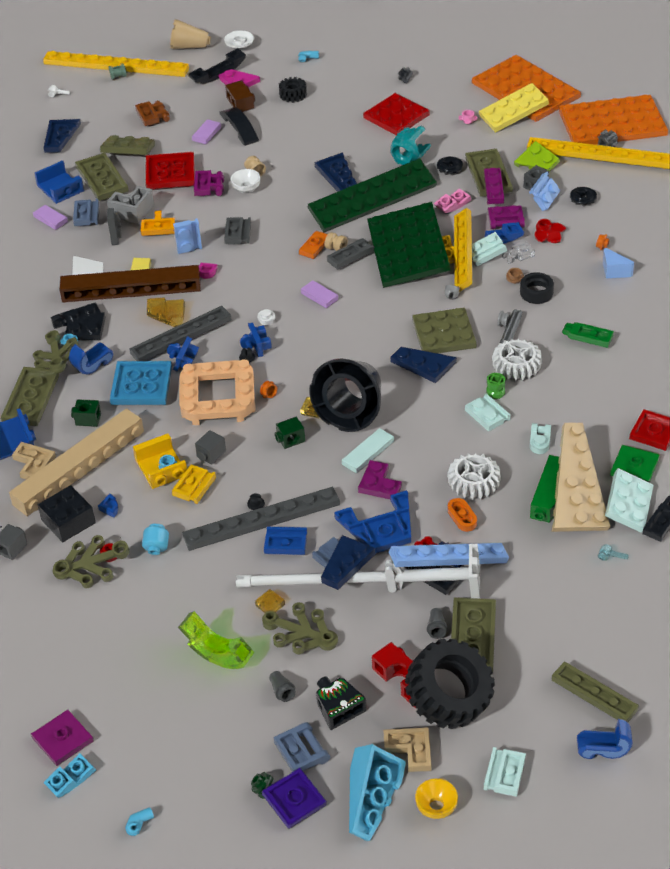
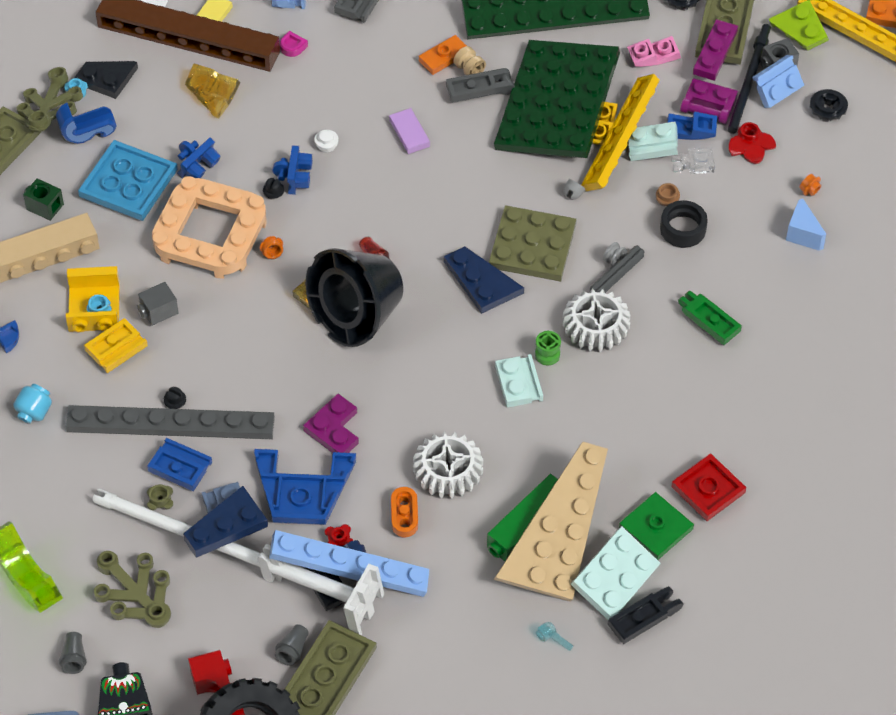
camera: 20 degrees right, 10 degrees up
(62, 319) = (101, 52): black hinge -> none
(179, 334) = (212, 126): dark grey plate -> none
(270, 601) = (120, 538): clear yellow plate -> none
(283, 565) = (160, 491): none -> olive plate
(290, 432) = (263, 318): dark green brick -> none
(367, 450) = (344, 378): light aqua tile -> none
(518, 178) = (760, 41): none -> black bar
(540, 443) = (557, 449): light aqua plate -> none

